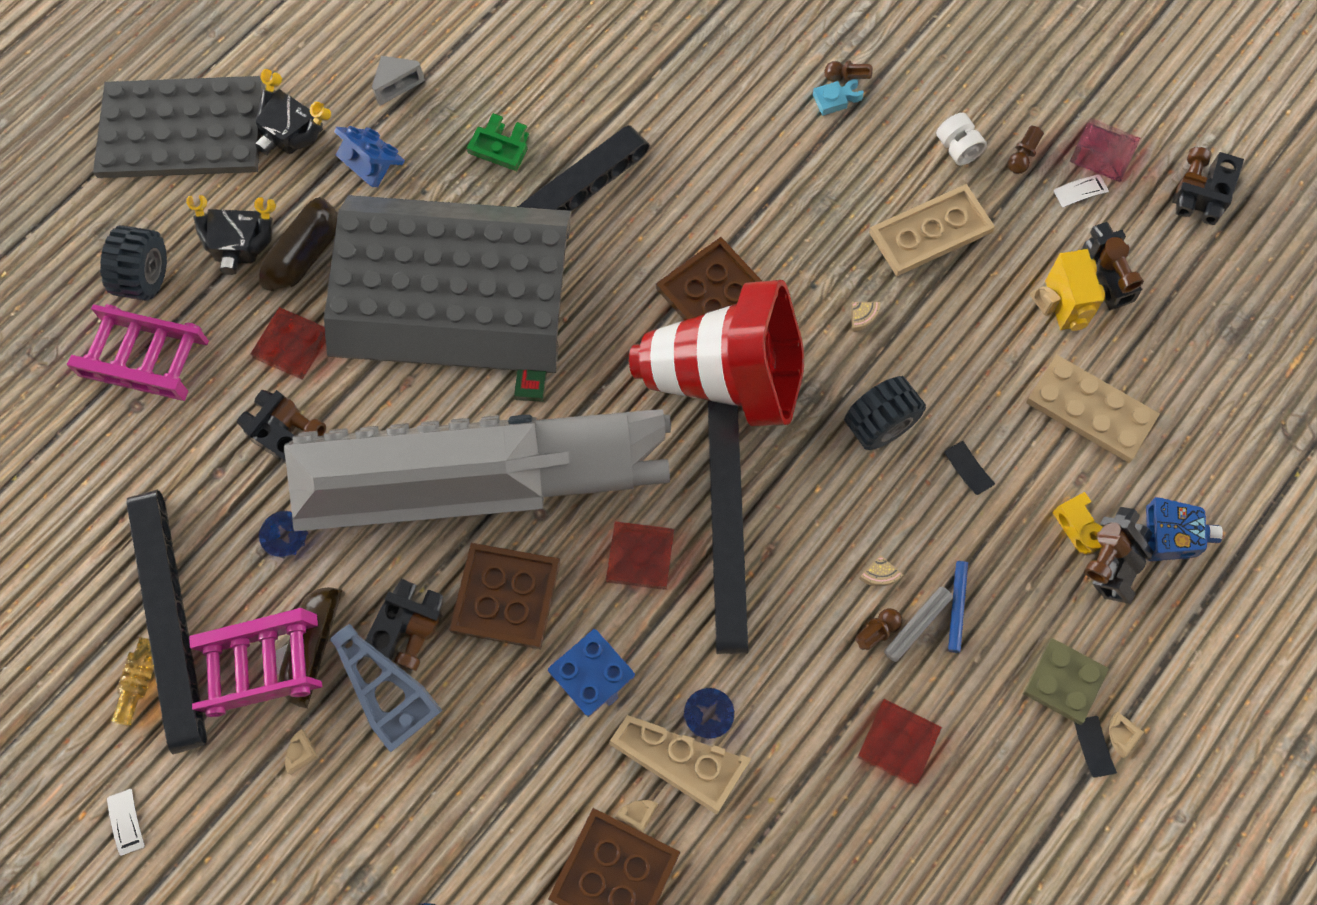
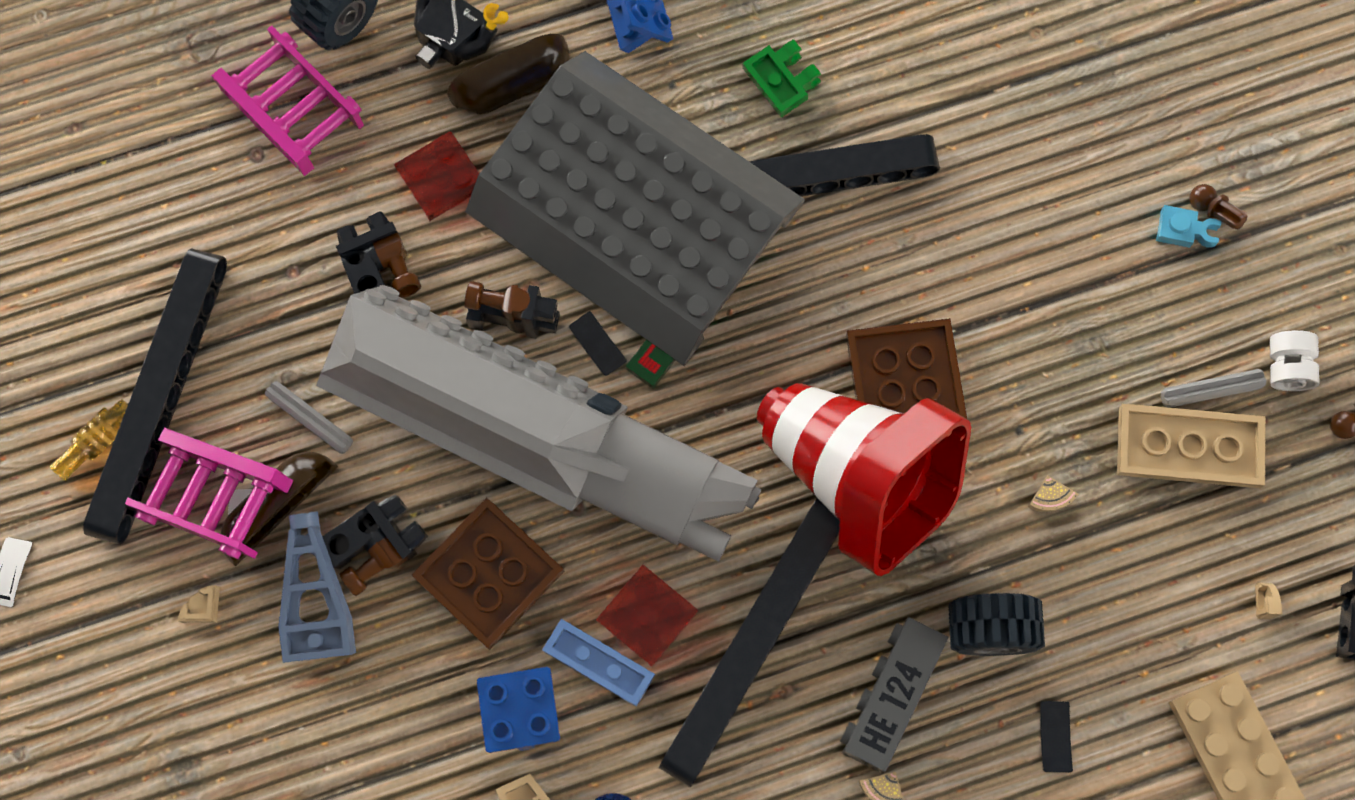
camera: 35 degrees right, 5 degrees up
(270, 532) = (303, 366): clear blue gear -> none
(297, 567) = (309, 417): none -> light grey axle
(409, 401) = (511, 308): none -> hips
(482, 393) = (597, 343): none -> black sticker
(626, 608) = (598, 662): none -> medium blue plate
(846, 504) = (894, 695): none -> dark grey brick
(921, 186) = (1213, 388): none -> light grey axle
(1077, 285) = (1308, 611): yellow brick -> none

